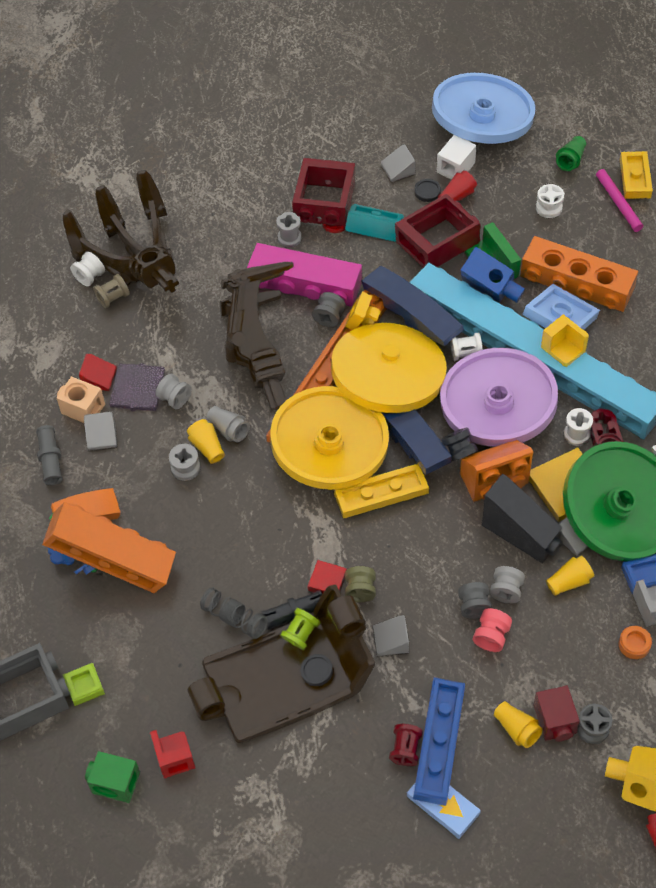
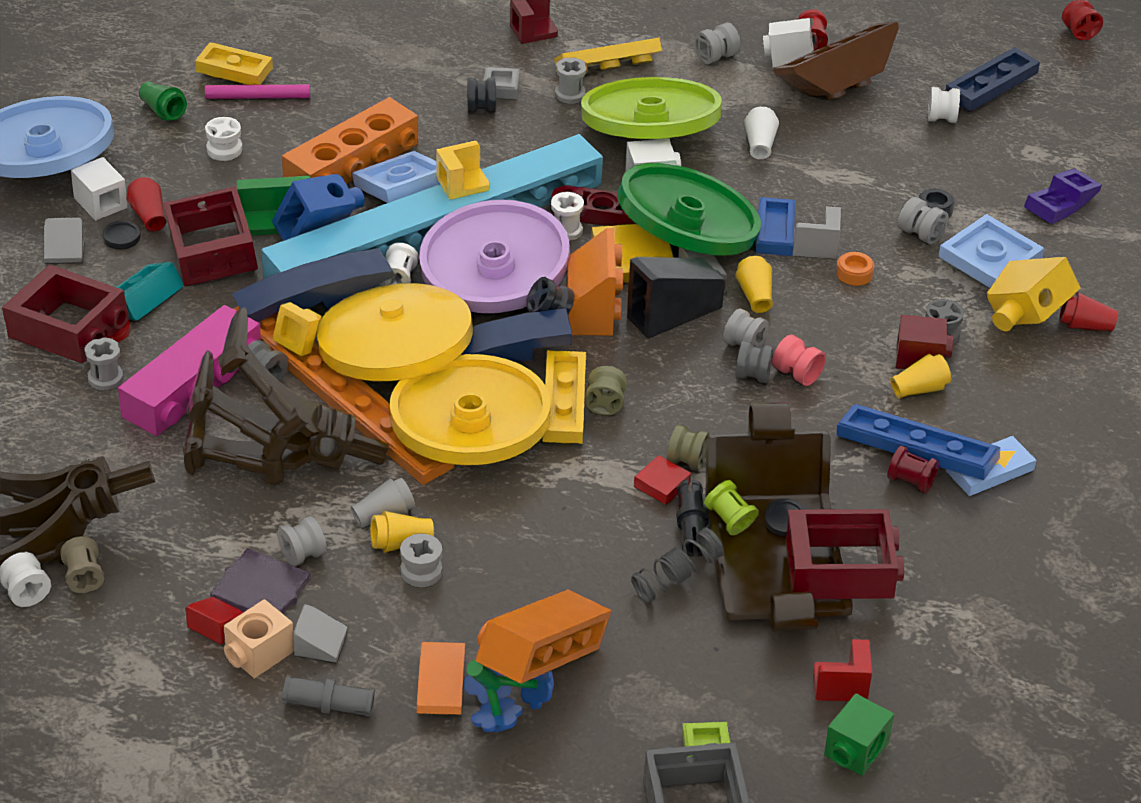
camera: 75 degrees left, 15 degrees down
(267, 685) = (843, 529): none -> dark red window
(396, 513) = (605, 390): none -> olive wheel

